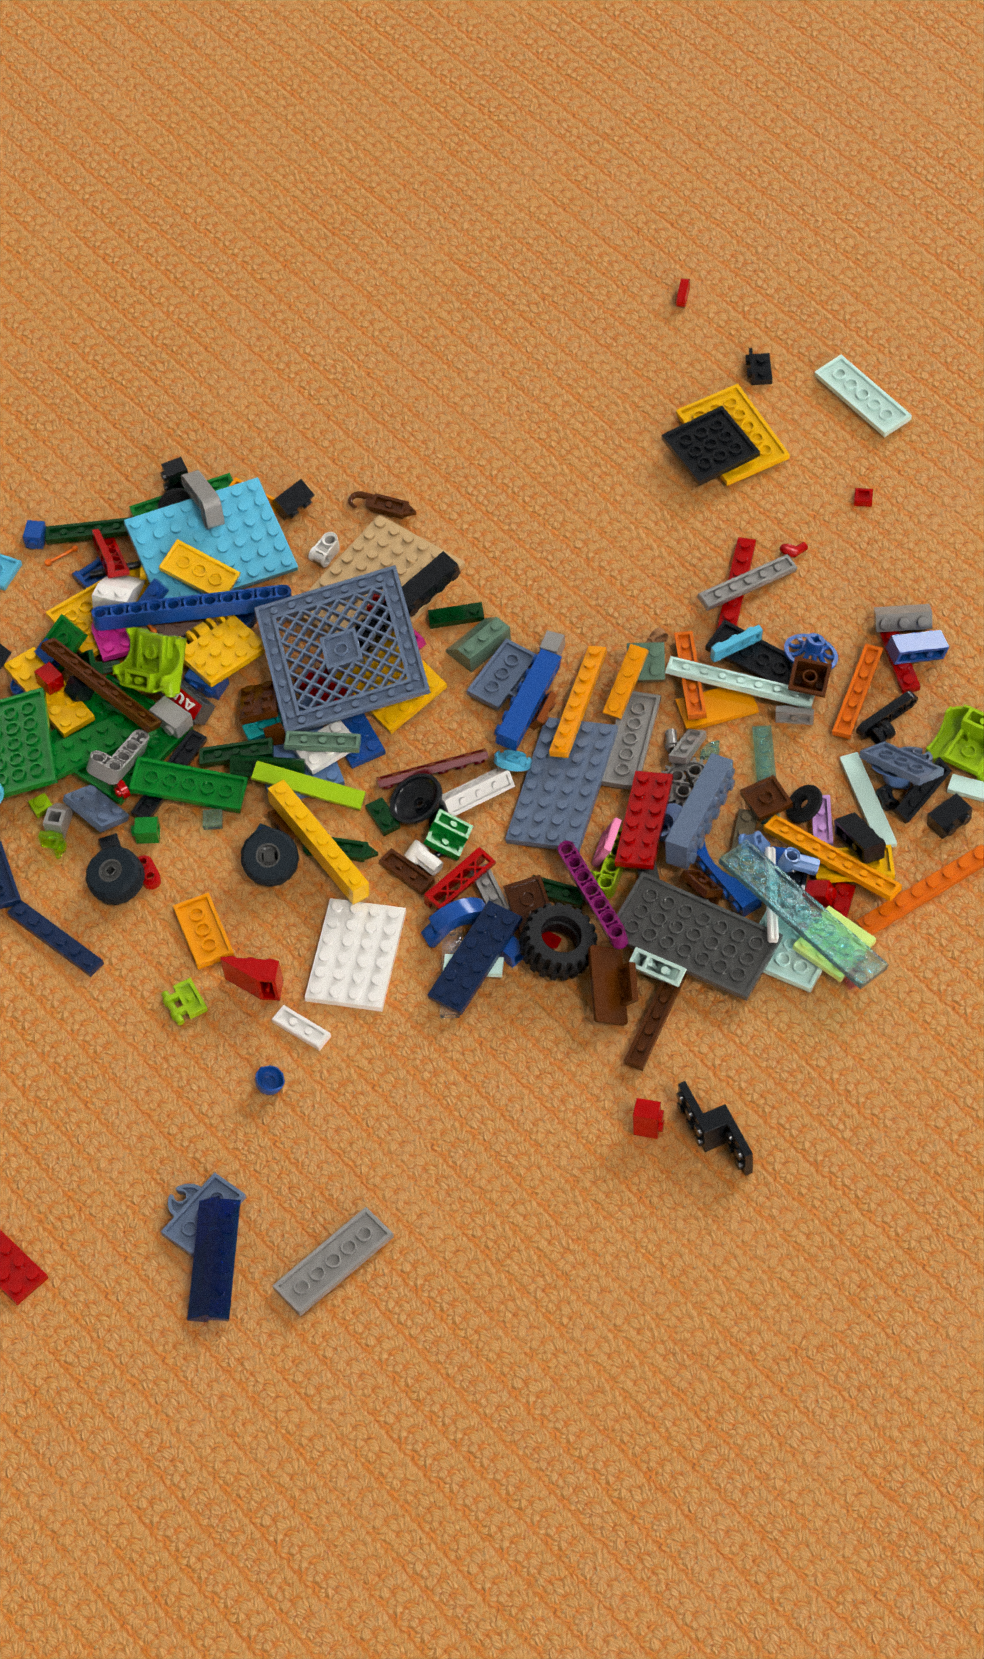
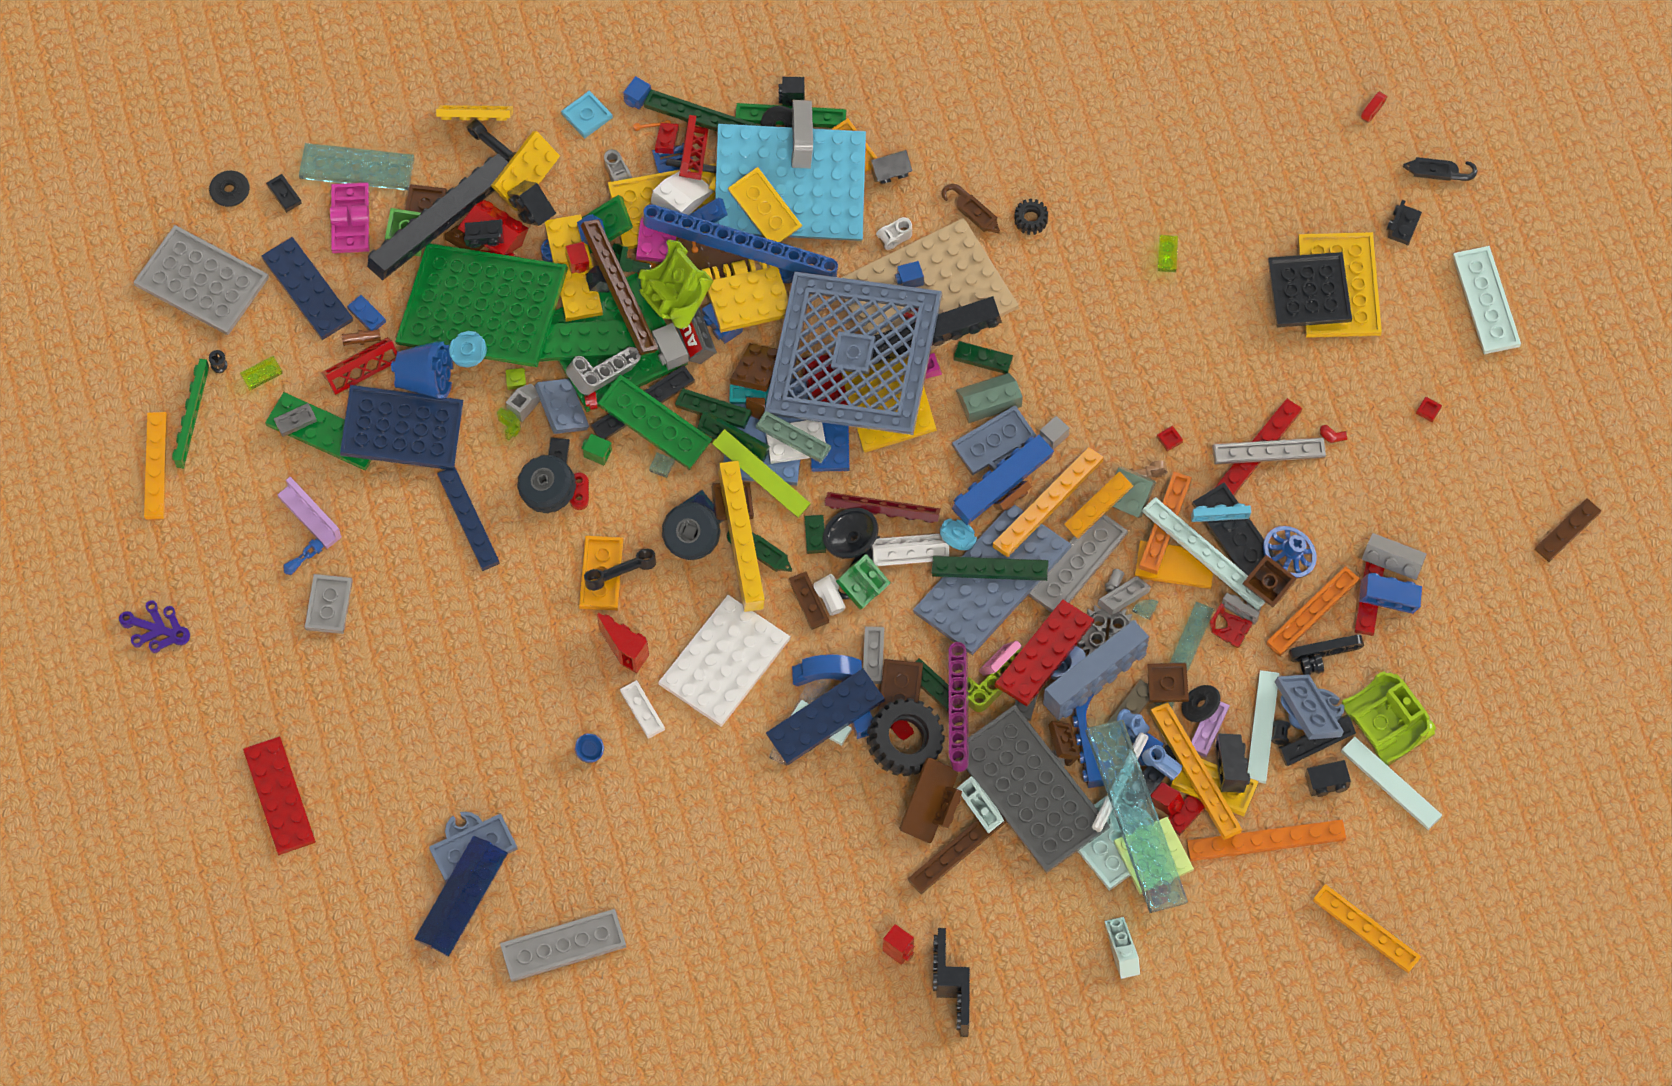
camera: 20 degrees right, 10 degrees up
(45, 598) = (618, 169): none -> light grey piece
(80, 558) = (667, 138): none -> red plate
(189, 998) = (557, 635): lime plate -> none
(202, 934) = (620, 569): none -> black piece
(356, 569) = (910, 275): none -> blue brick
(437, 497) = (1031, 226): none -> black tyre
(457, 876) = (848, 627): red fence -> none
(557, 774) = (990, 568): none -> dark green plate
(571, 470) = (1167, 253): none -> clear neon green plate
(655, 610) = (1169, 438): none -> red tile
(765, 316) = (1439, 169): none -> black plate
(799, 733) = (1236, 628): none -> red piece
(850, 1033) = (1122, 948): none -> light aqua slope

